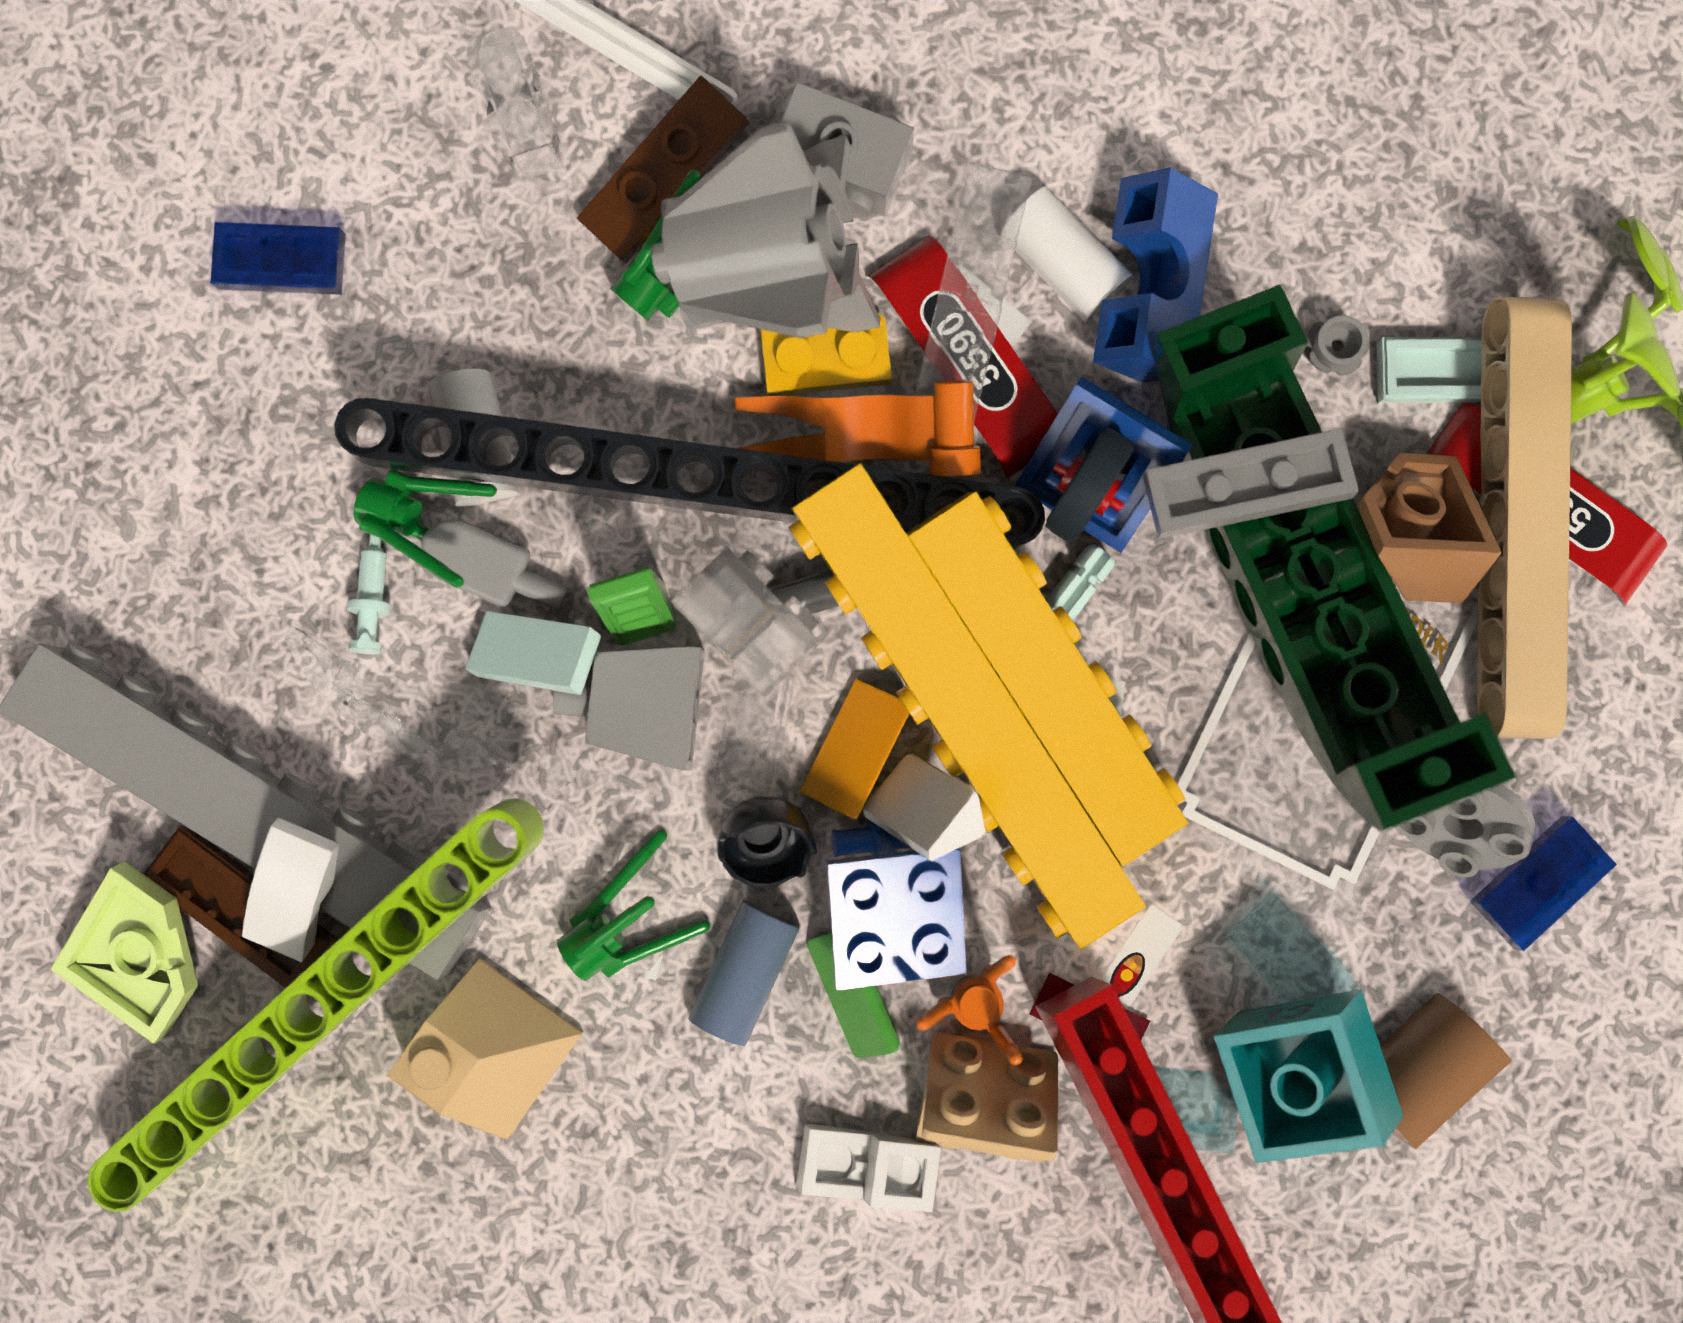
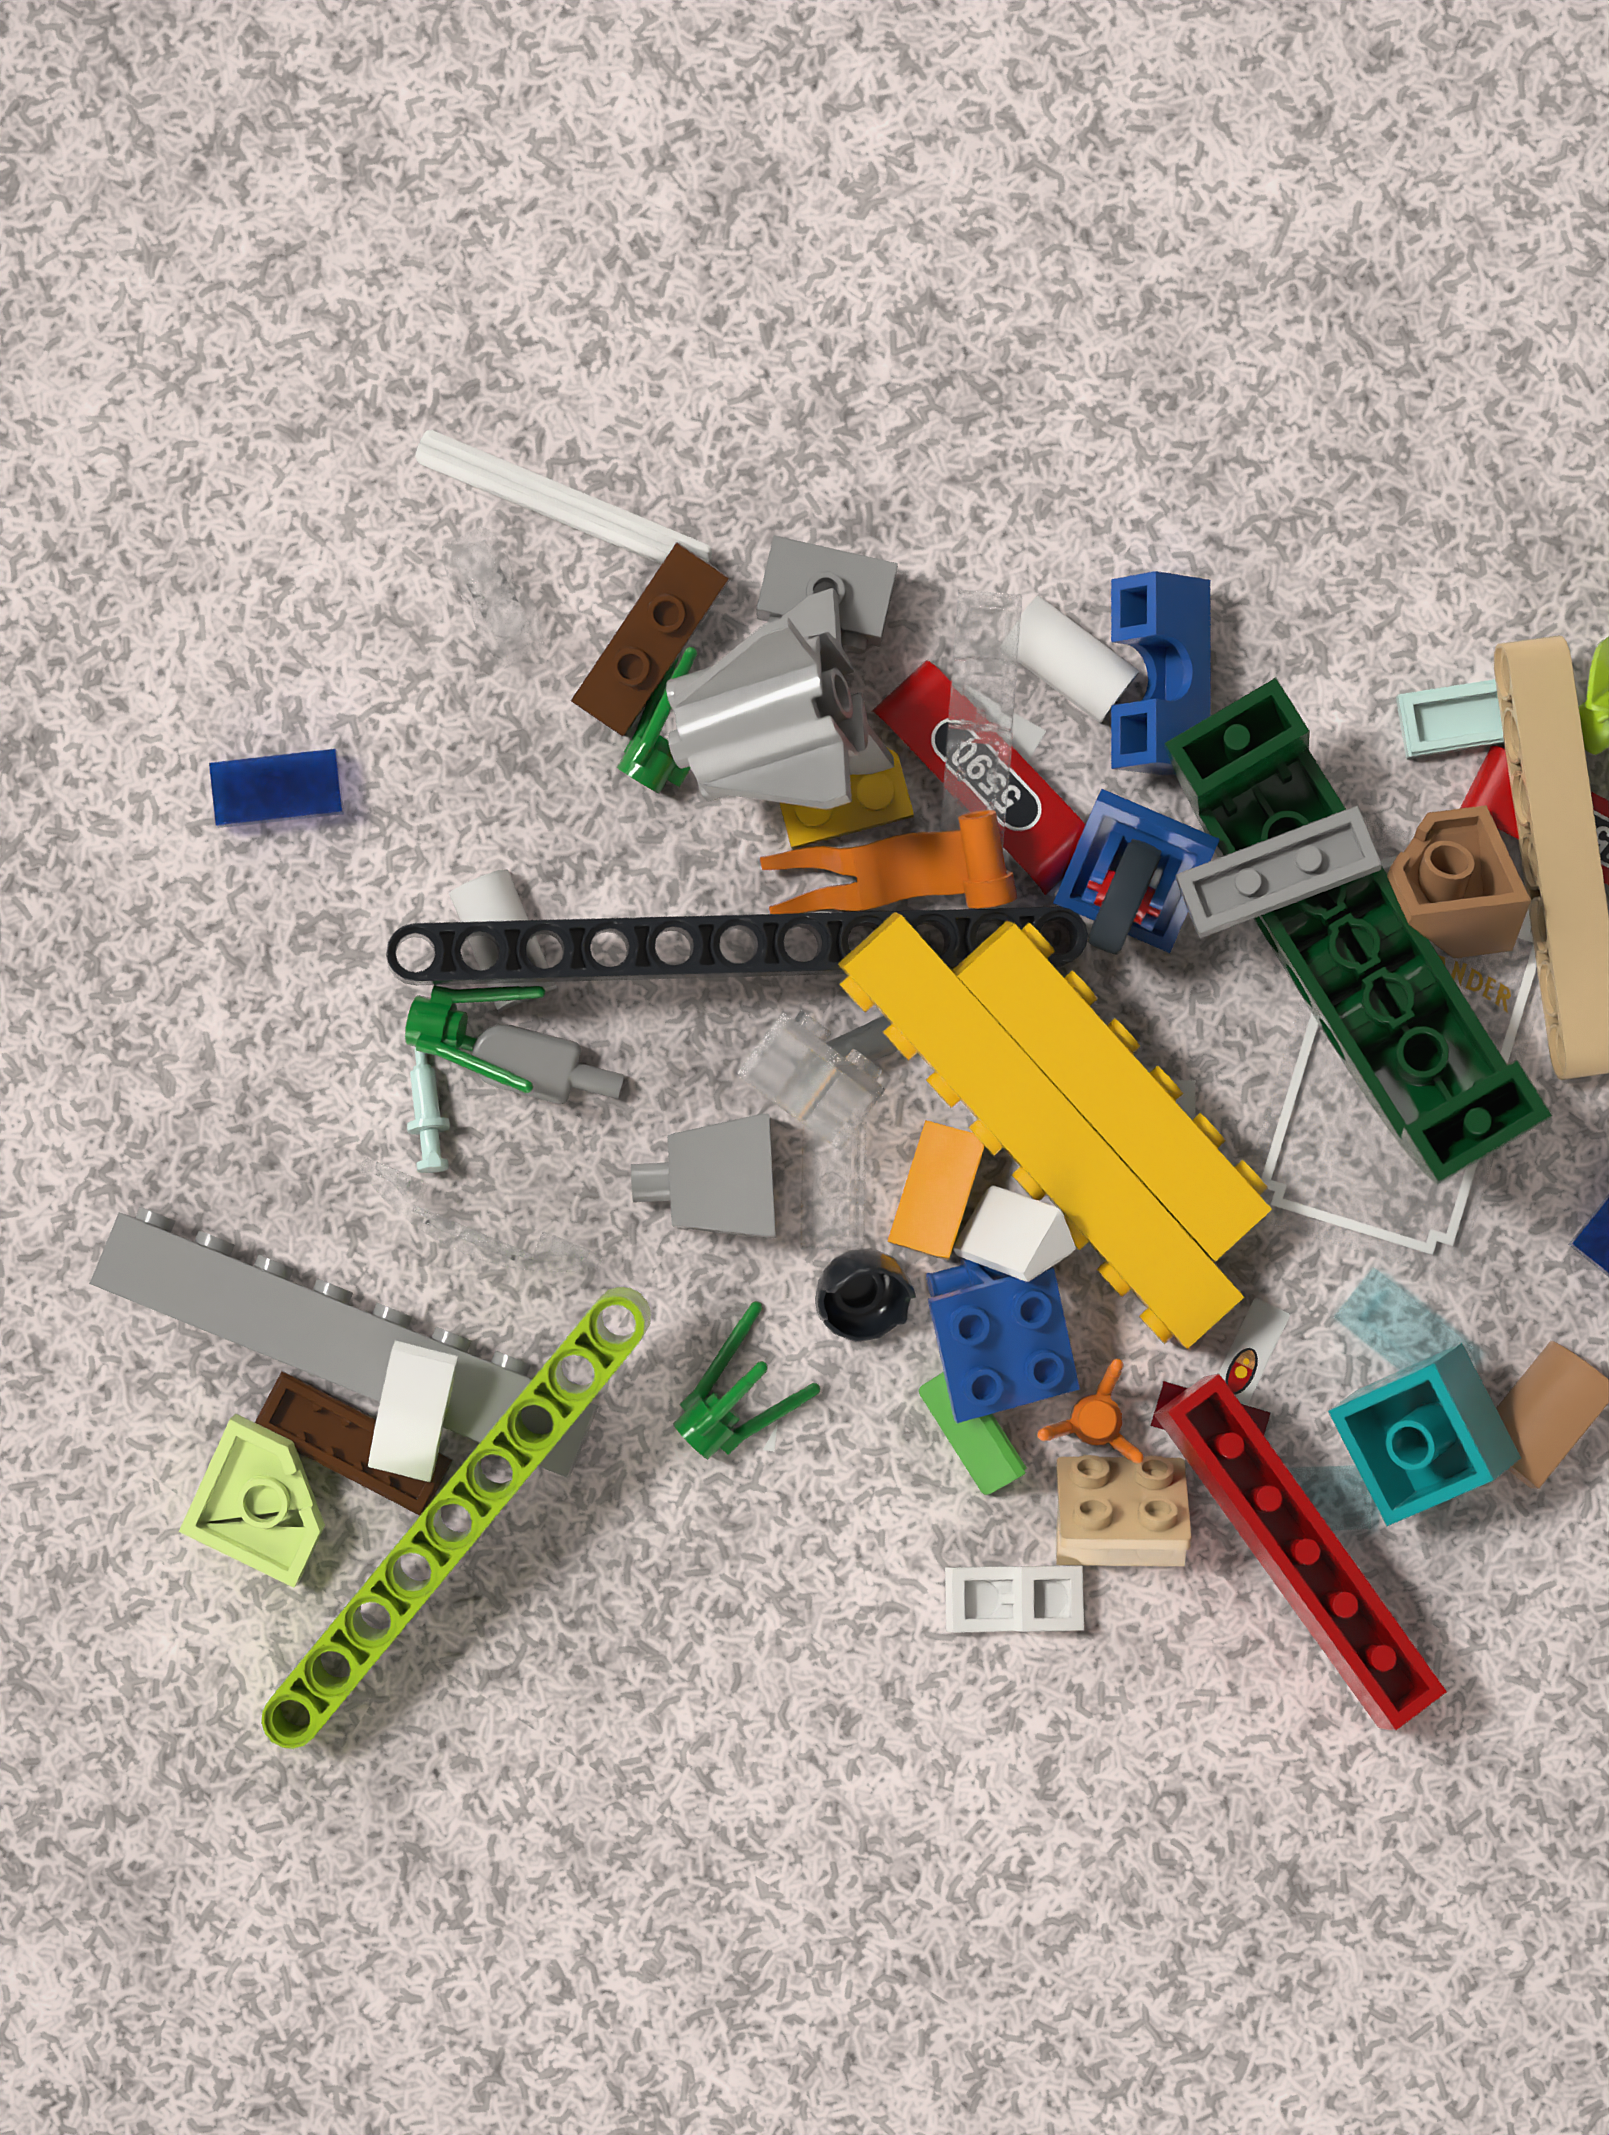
camera: 10 degrees left, 0 degrees up
(485, 1052) = (623, 1543): tan slope -> none
(533, 652) = (603, 1144): light aqua tile -> none
(633, 606) = (698, 1084): bright green slope -> none
(743, 974) = (861, 1427): sand blue brick -> none
(1078, 585) = (1132, 993): light aqua axle -> none
(1353, 340) = (1372, 706): light grey plate -> none
(1476, 832) = (1549, 1166): light grey plate -> none

